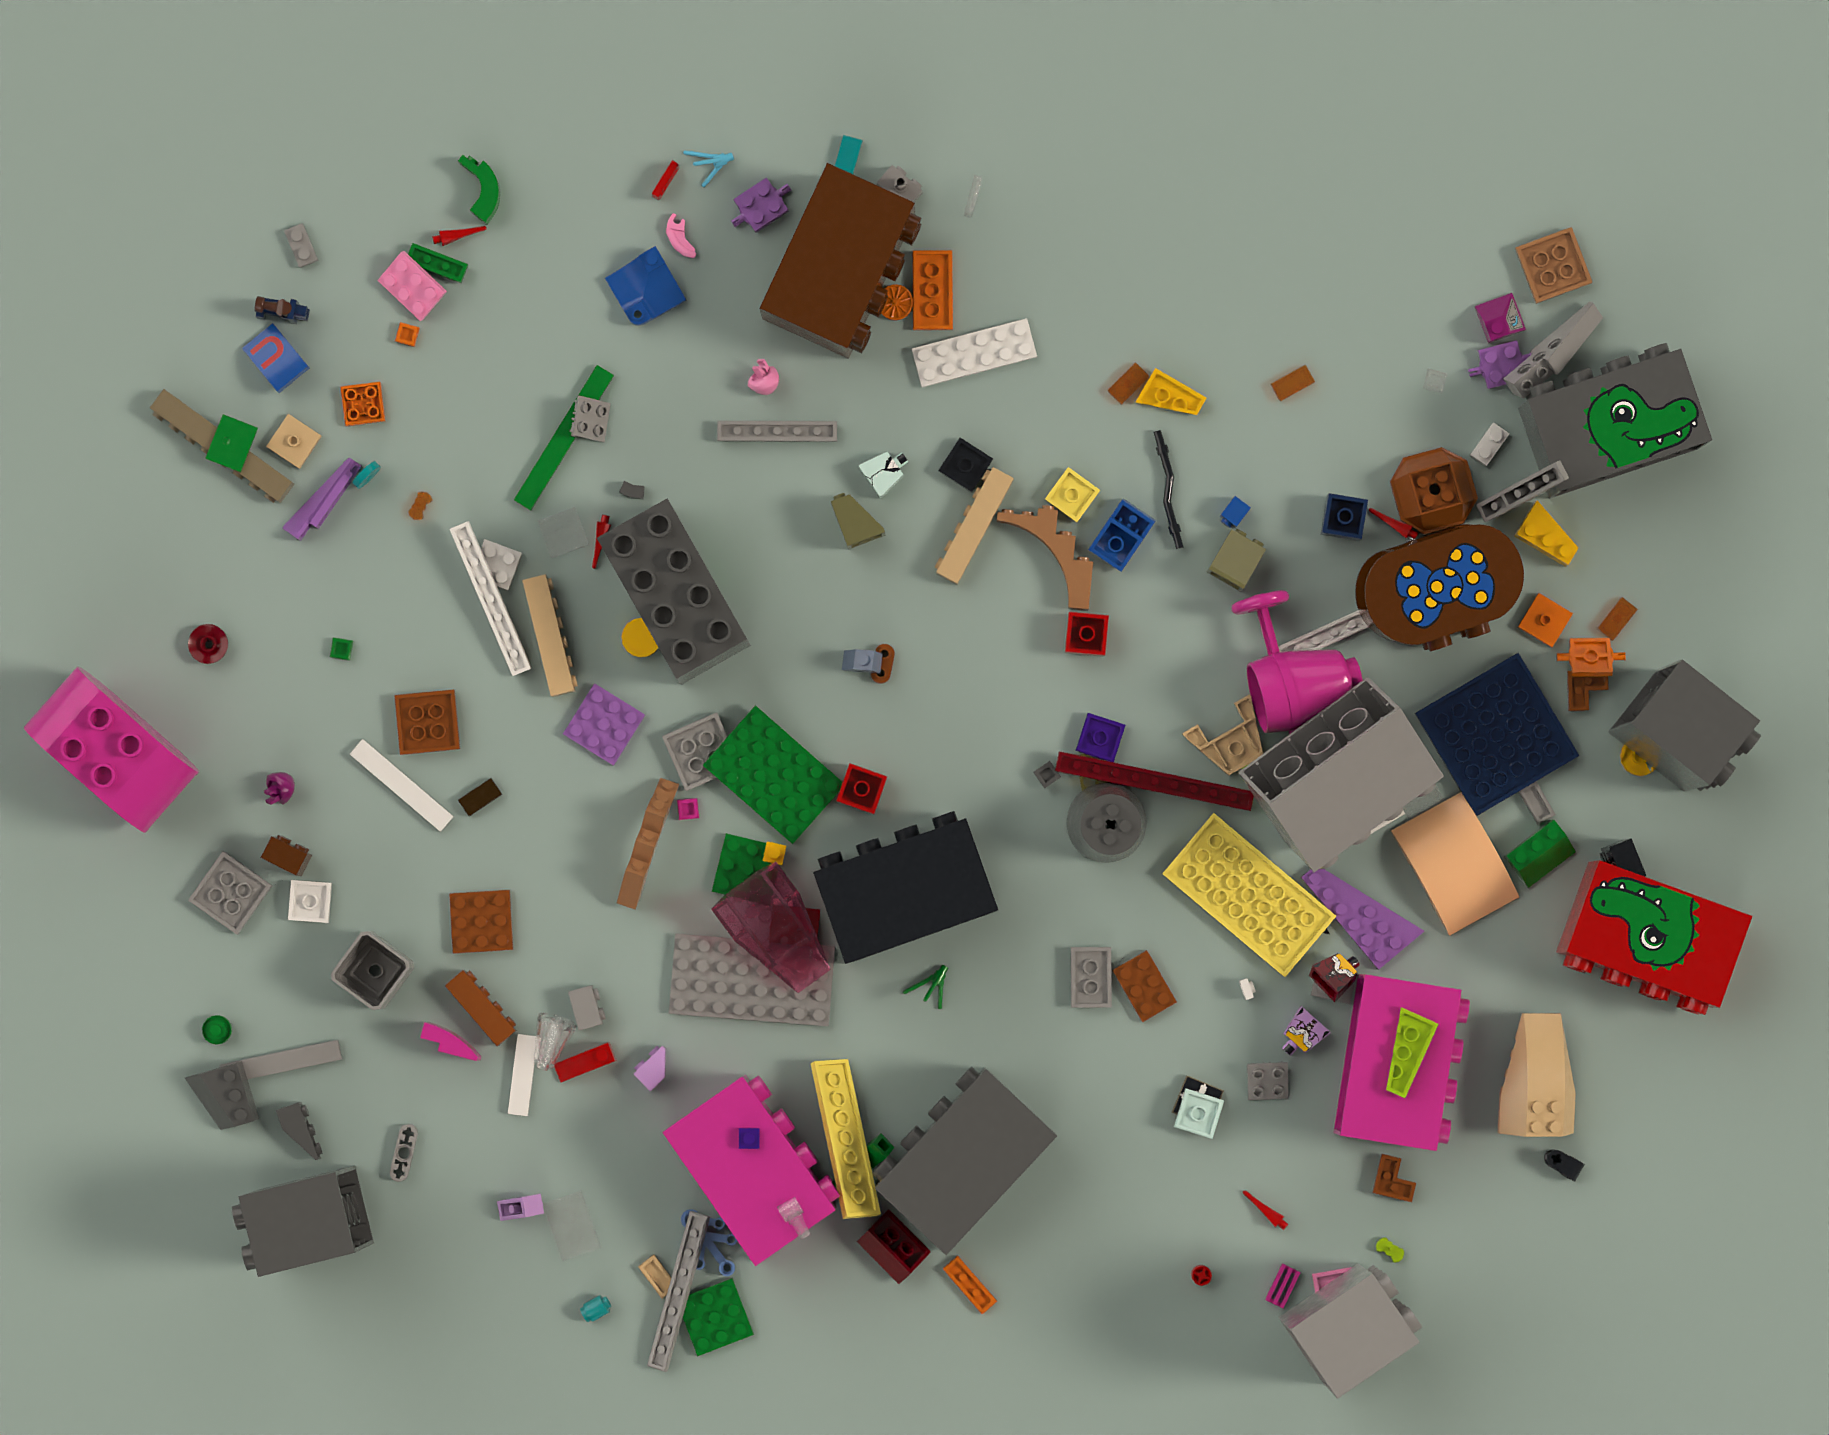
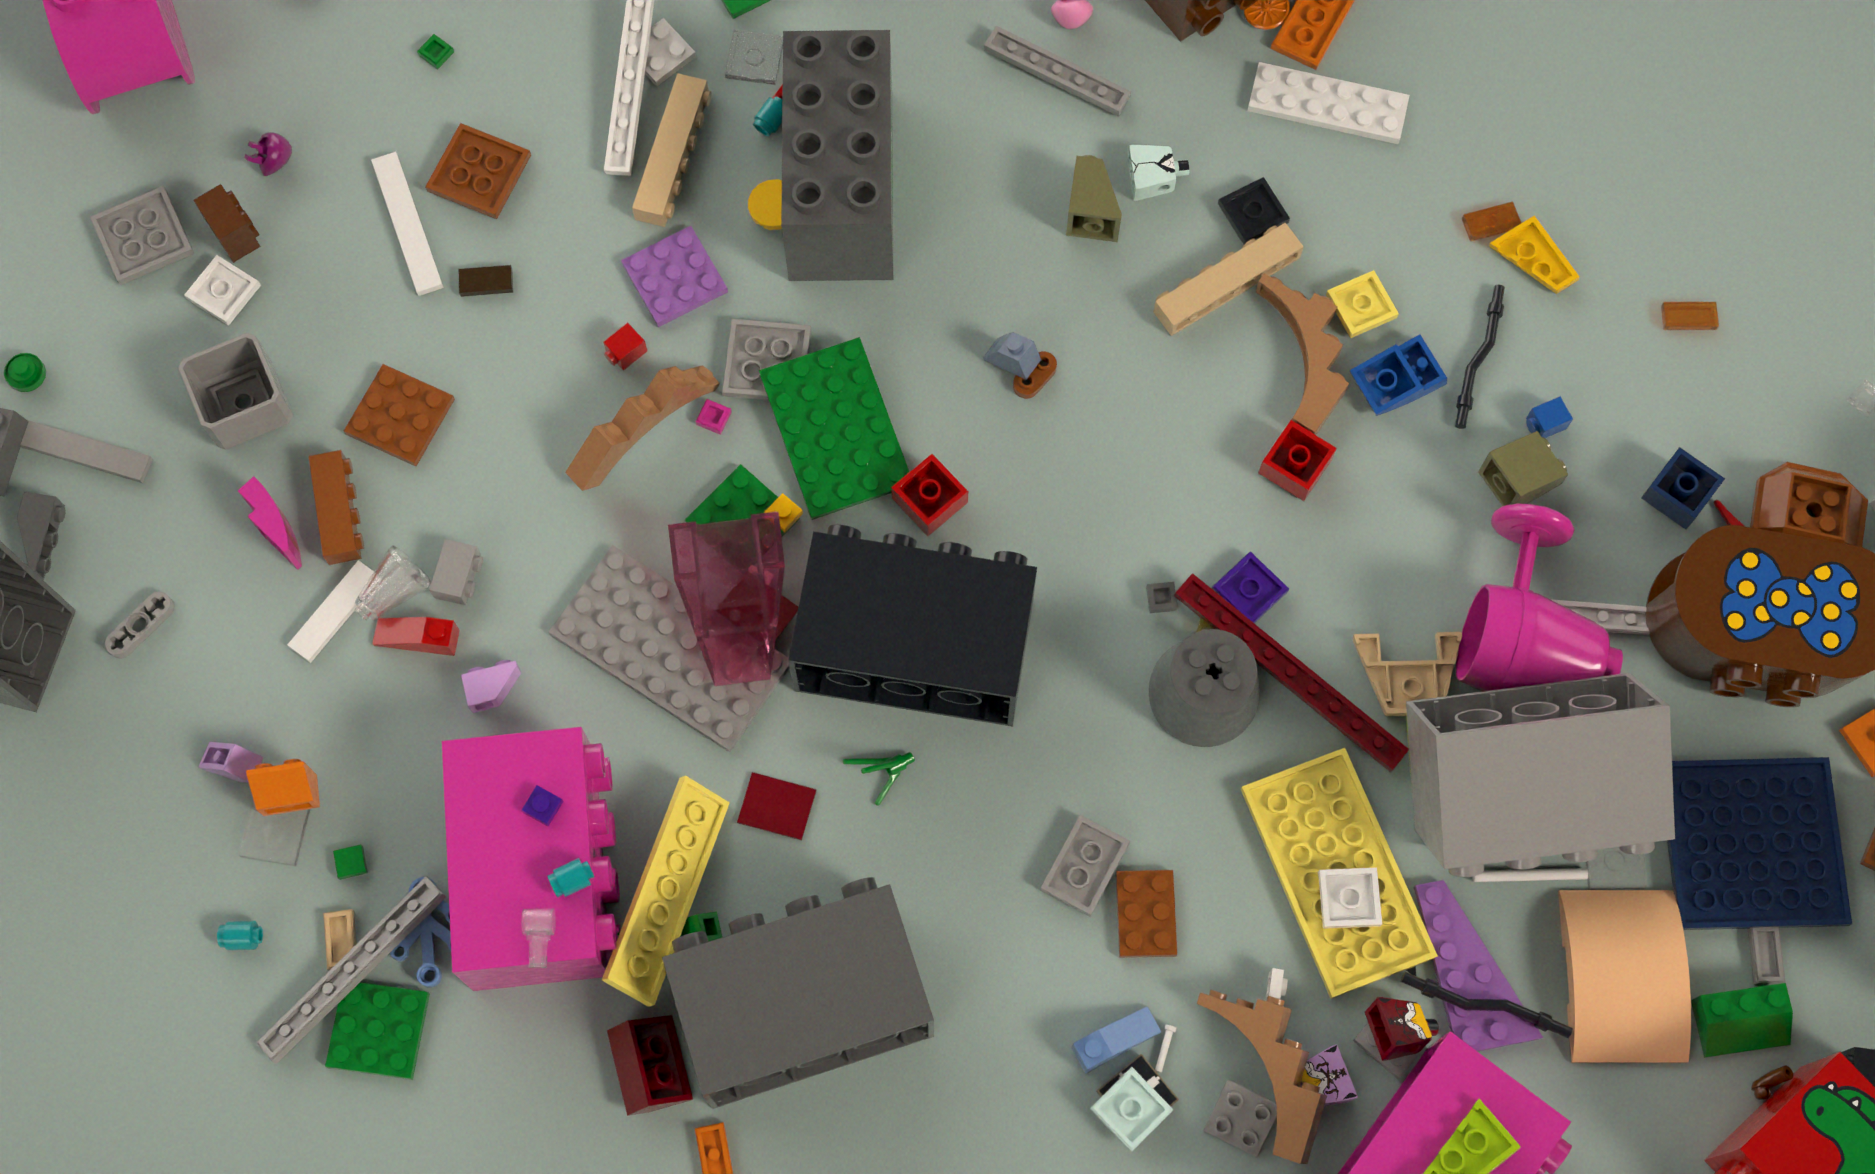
camera: 25 degrees right, 15 degrees down
(569, 1207) = (283, 787): none -> orange slope
(602, 573) = (769, 116): none -> teal brick
(602, 795) = (624, 347): none -> red brick
(634, 1226) = (350, 862): none -> green tile
(794, 1173) = (571, 877): none -> teal brick
(878, 1044) = (776, 806): none -> dark red piece
(1167, 1074) = (1115, 1039): none -> medium blue slope
(1199, 1063) = (1164, 1048): none -> white piece
(1253, 1021) = (1297, 1107): none -> medium nougat arch
(1265, 910) = (1350, 898): none -> white plate
(1417, 922) = (1540, 1020): none -> black bar
(1569, 888) = (1769, 1080): none -> reddish brown arm

